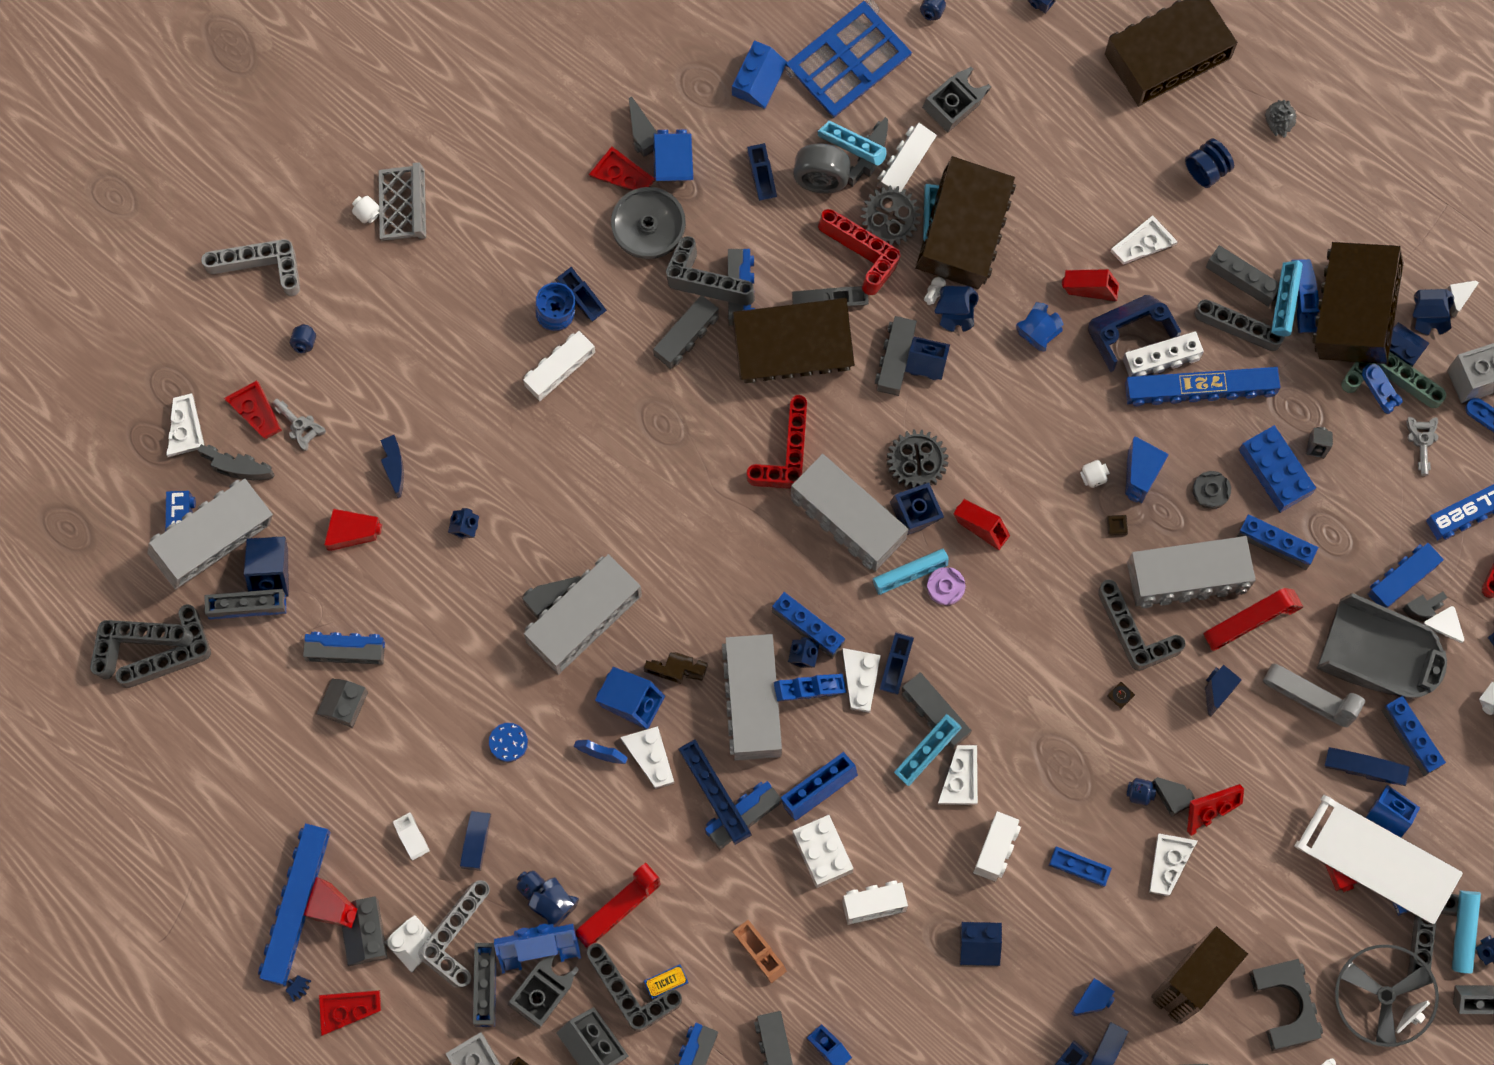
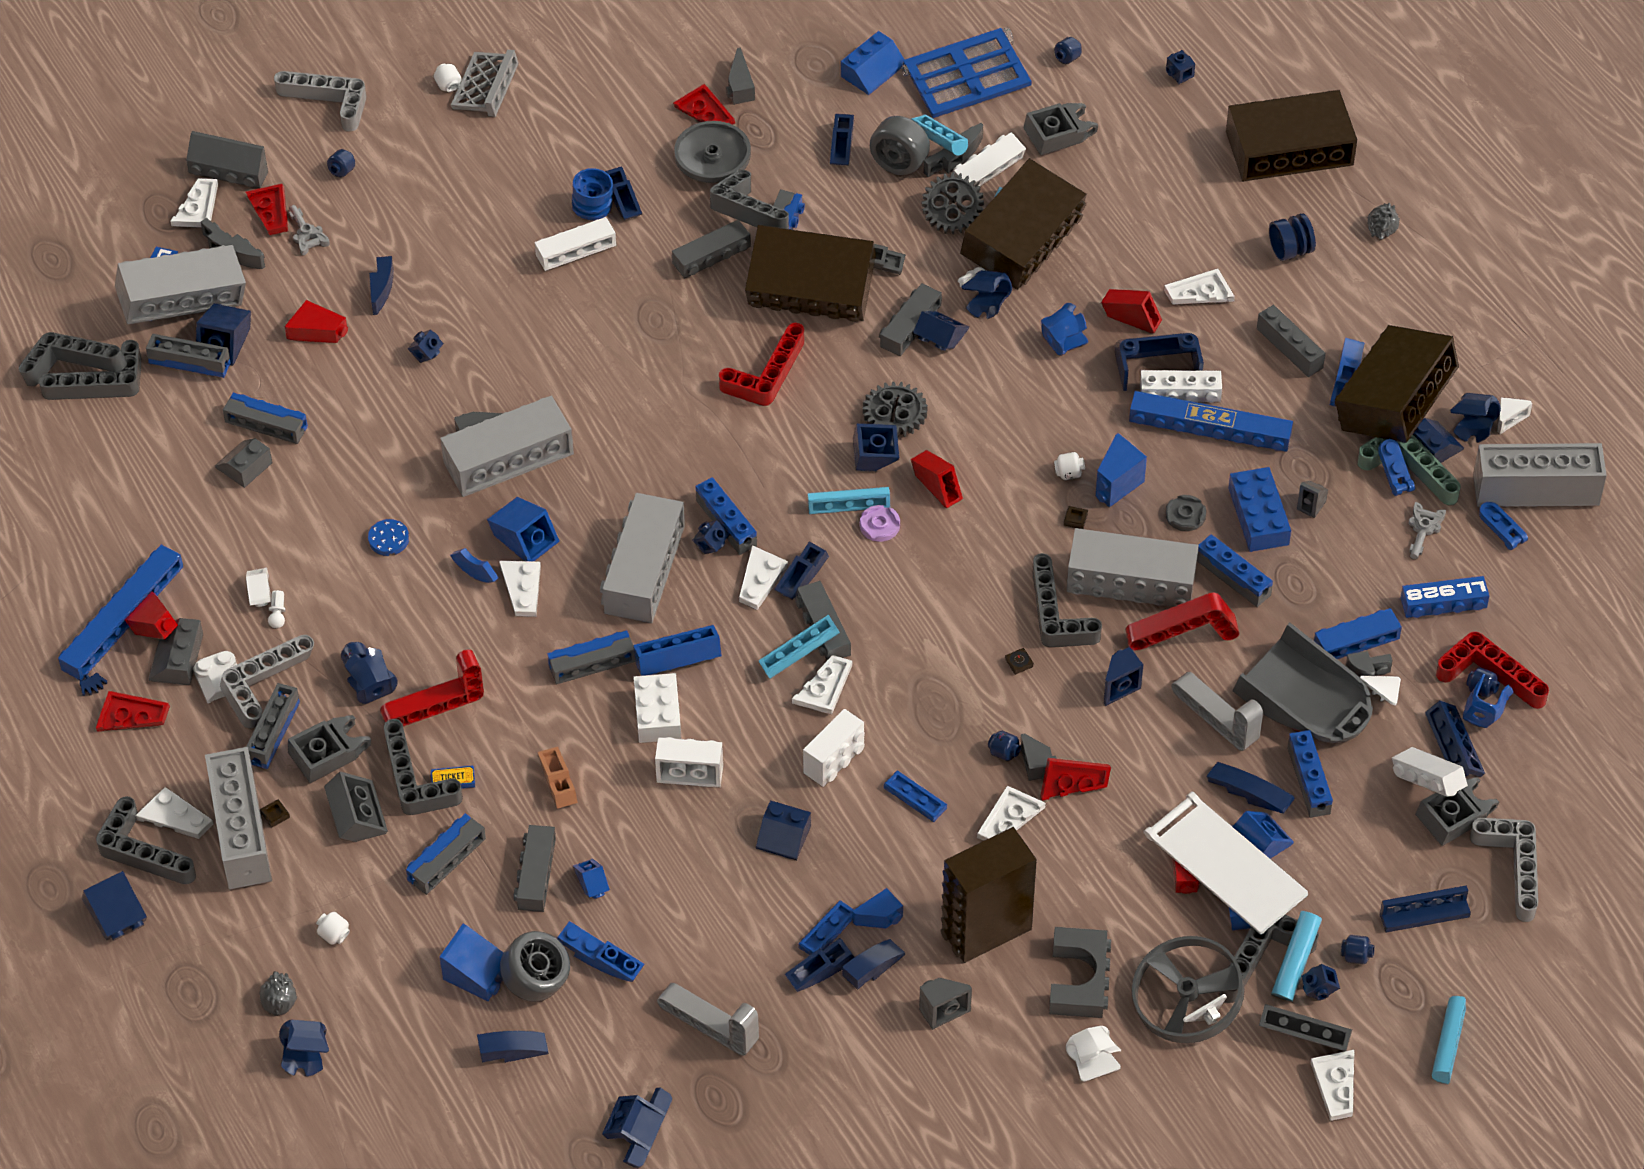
camera: 20 degrees right, 20 degrees down
(194, 371) = (226, 159): none -> dark grey slope
(439, 863) = (276, 619): none -> white axle
(475, 841) = (317, 608): dark blue slope -> none
(536, 943) = (330, 698): blue bracket -> none
(672, 155) = (758, 101): blue slope -> none
(676, 667) = (580, 518): dark brown plate -> none
(715, 792) = (571, 626): dark blue tile -> none
(810, 687) = (702, 563): blue slope -> none
(848, 513) = (805, 431): light grey brick -> none
(865, 244) = (928, 233): red beam -> none
(1053, 1030) = (827, 929): none -> blue tile
(1232, 317) = (1280, 387): dark grey beam -> none
(1287, 298) = (1324, 363): medium azure brick -> none

